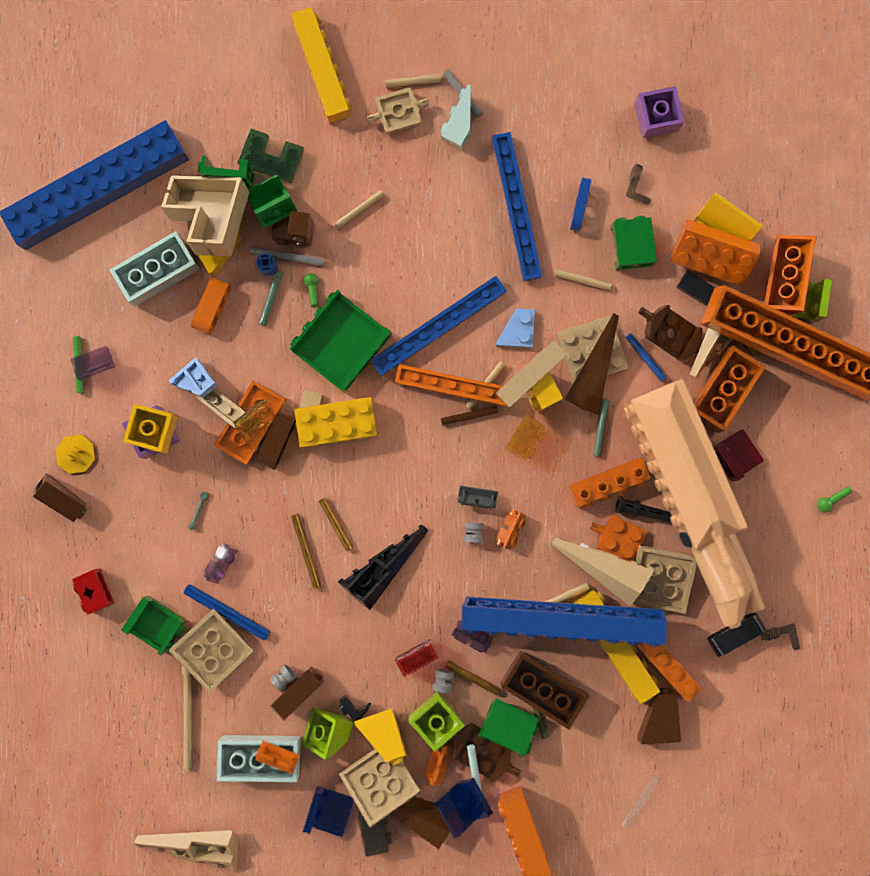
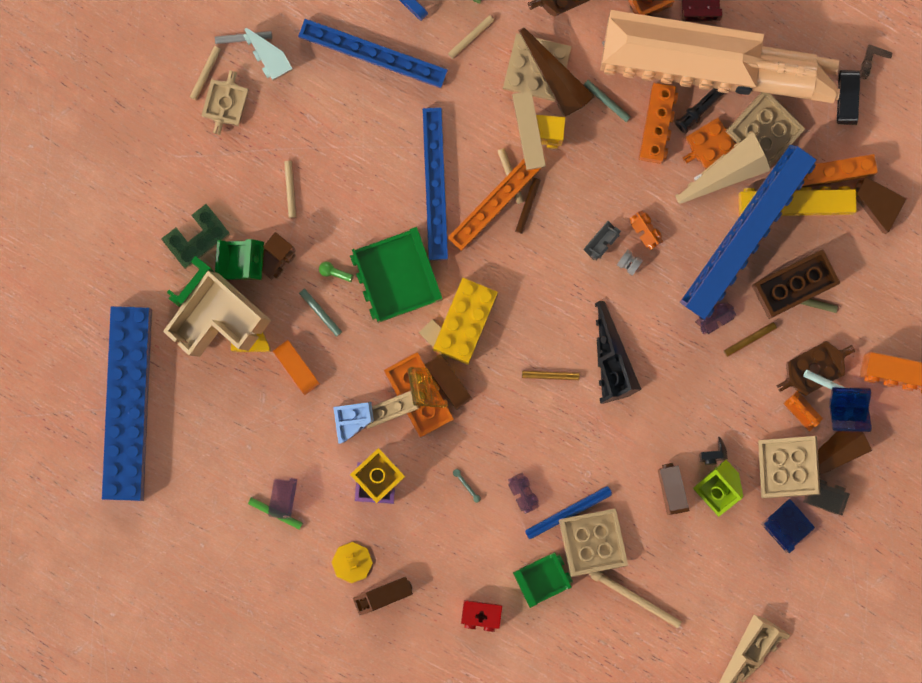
camera: 60 degrees left, 0 degrees up
(154, 269) = (235, 394): light aqua brick -> none
(238, 755) = (708, 556): light aqua brick -> none
(269, 267) = (292, 299): blue wheel -> none
(277, 757) = (716, 536): orange hinge -> none
(283, 678) = (654, 496): light grey wheel -> none
(288, 256) = (292, 276): light grey bar -> none
(305, 550) = (557, 414): pearl gold bar -> none
(320, 64) = (142, 144): yellow brick -> none
(384, 735) = (753, 440): yellow slope -> none
(416, 658) = (705, 373): clear red brick -> none
(436, 721) = (766, 389): lime slope -> none
(443, 681) = (737, 364): light grey wheel -> none
(509, 727) = (809, 332): green panel -> none
(518, 330) = (480, 118): light blue wing -> none
(525, 438) = (577, 170): clear yellow brick -> none
(570, 594) = (730, 213): tan bar -> none
(646, 357) = (570, 25): blue bar -> none

